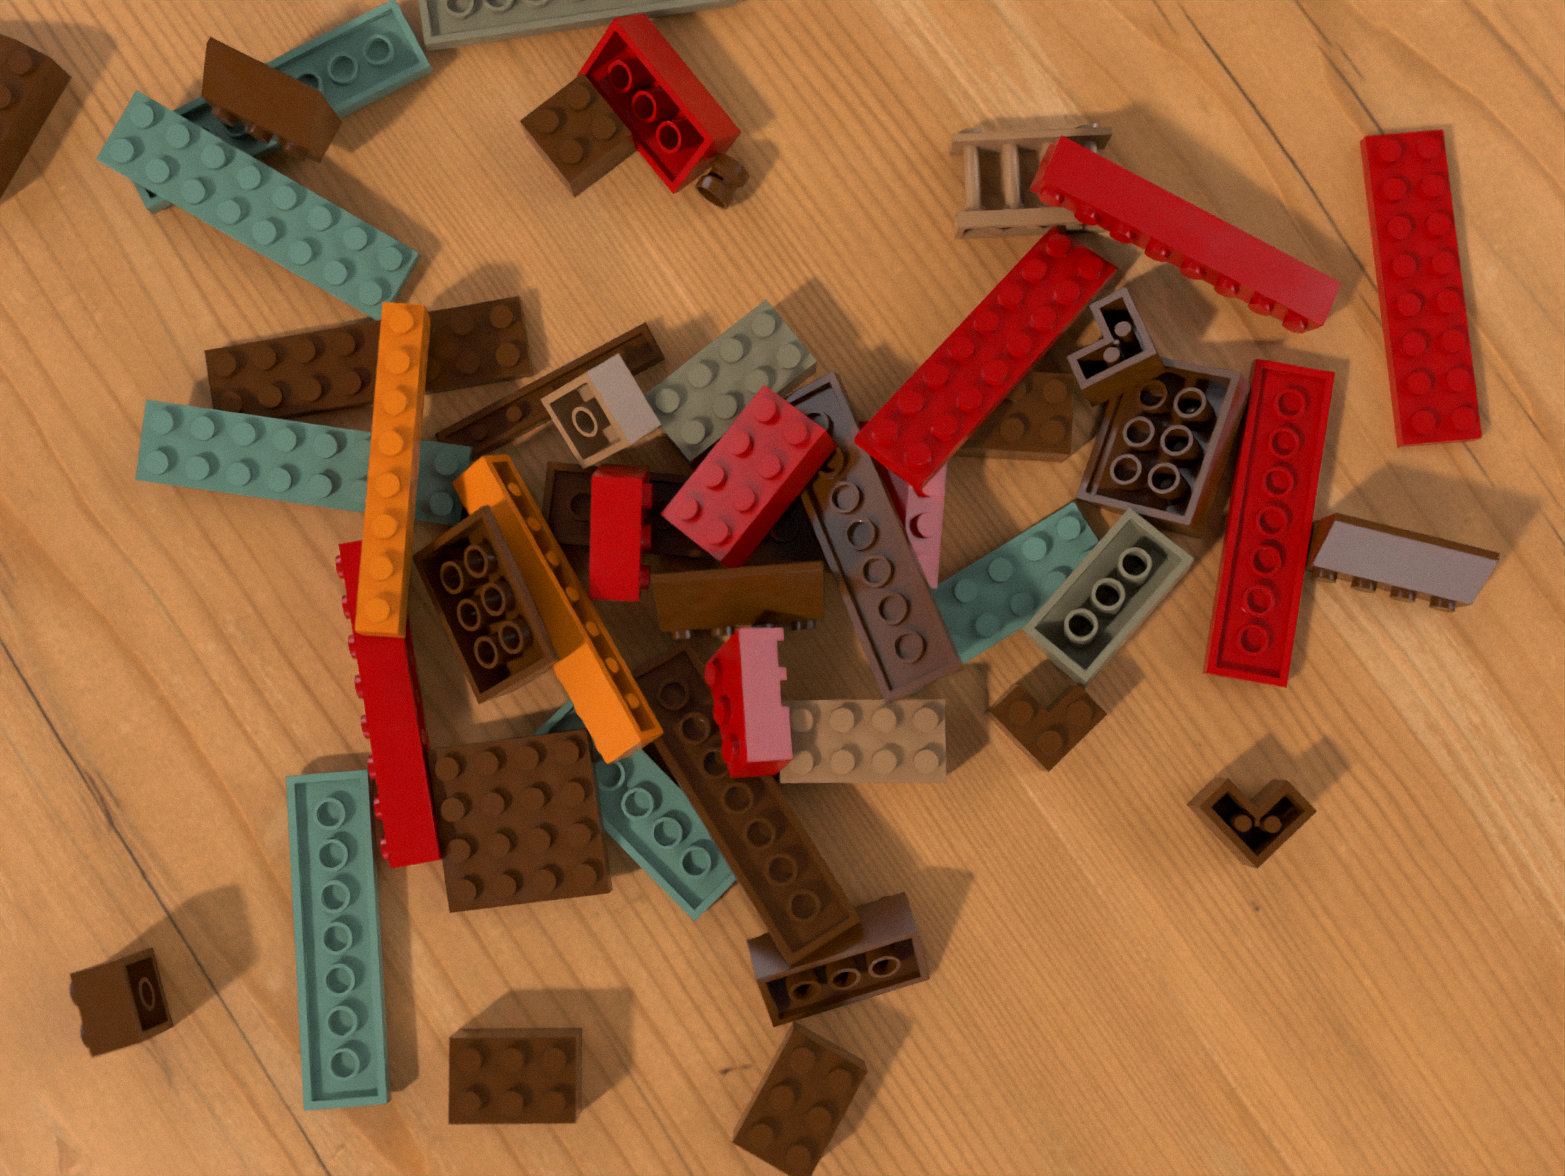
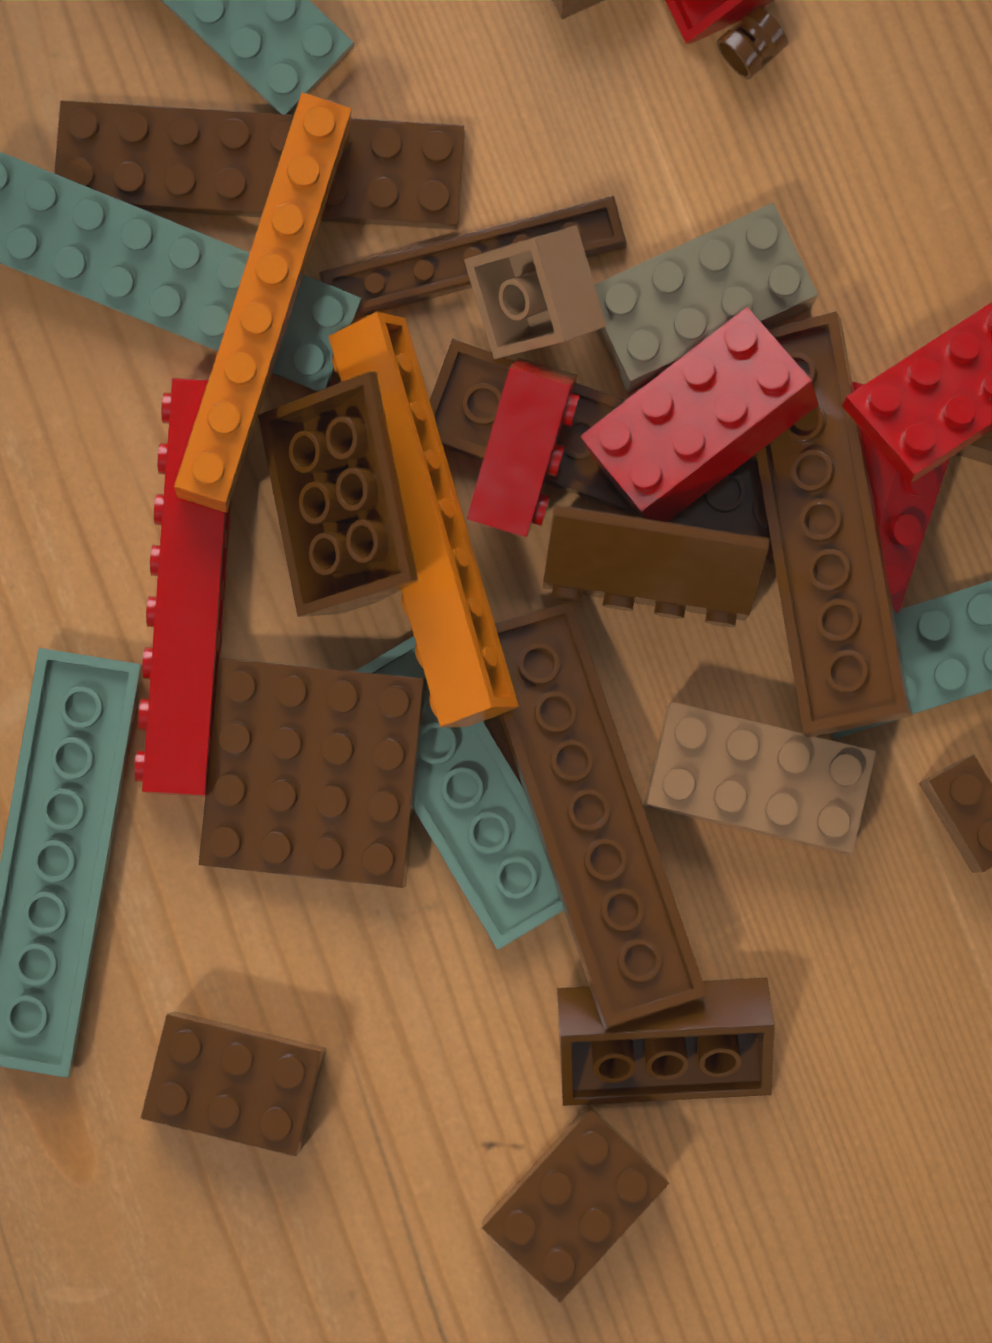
camera: 20 degrees right, 0 degrees up
(748, 702) = (632, 695): wedge -> none

